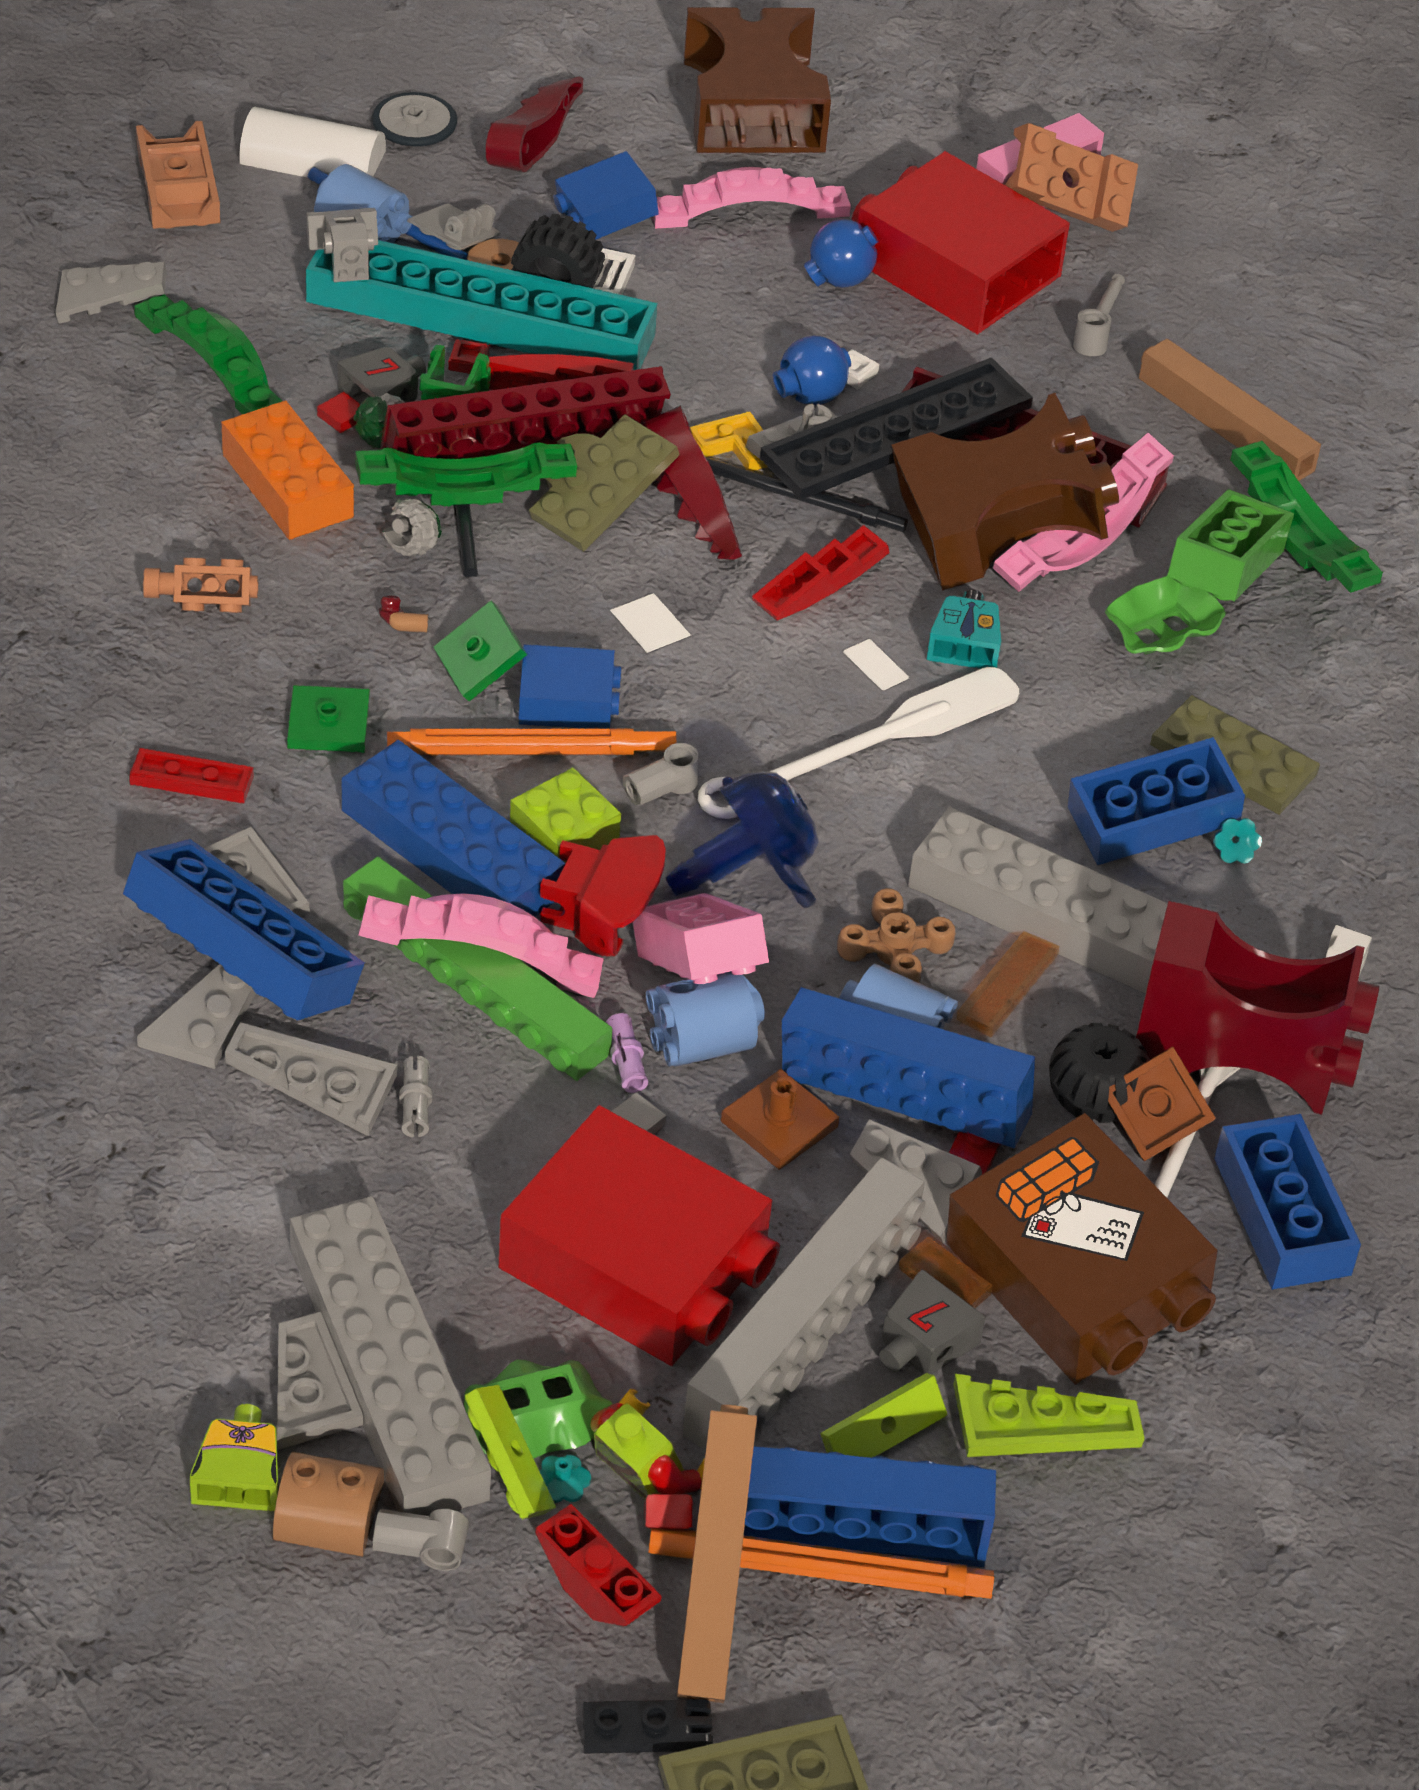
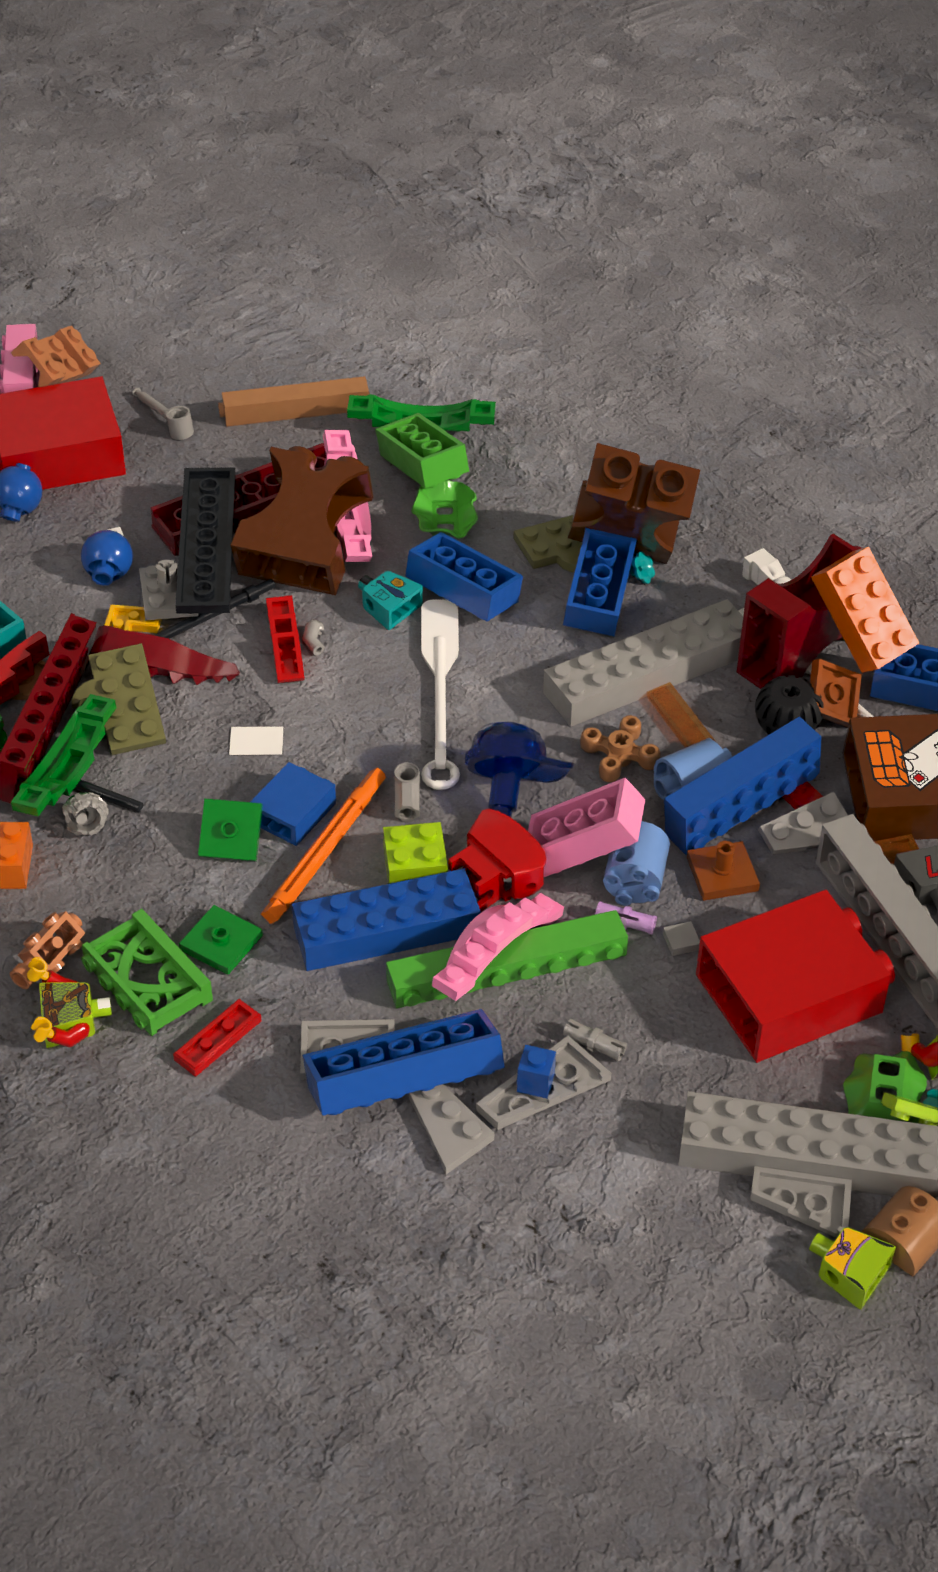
camera: 55 degrees left, 0 degrees up
(131, 638) = (65, 1007): none -> torso
(279, 650) = (146, 936): none -> bright green fence
(305, 1046) = (536, 1071): none -> blue brick
(398, 619) = (157, 862): medium nougat arm -> none
(845, 594) = (310, 635): none -> light grey arm
(876, 664) = (376, 654): white sticker -> none
(1052, 675) = (464, 576): none -> blue brick
(1268, 748) = (635, 500): none -> reddish brown brick
(1272, 1043) = (865, 610): none -> brick

